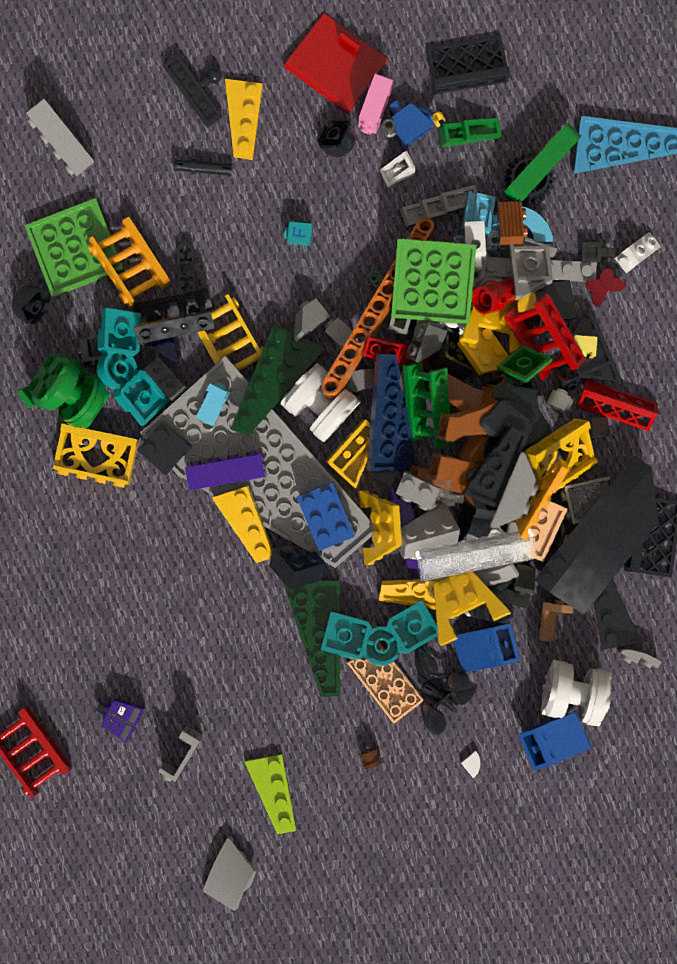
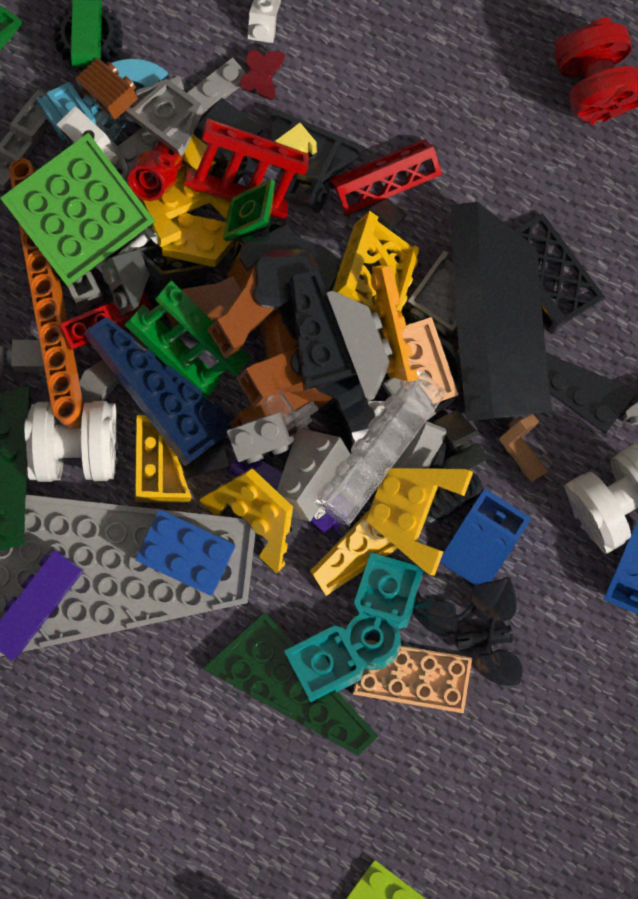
camera: 45 degrees left, 10 degrees down
(243, 516) = (102, 639): yellow wing -> none
(295, 569) = (204, 641): black brick -> none
(370, 758) = (473, 773): reddish brown wheel -> none
(374, 273) = (12, 265): clear green plate -> none
(472, 763) = (586, 678): white tile -> none
(559, 400) = (323, 223): white plate -> none
(593, 252) = (221, 49): pearl dark grey plate -> none

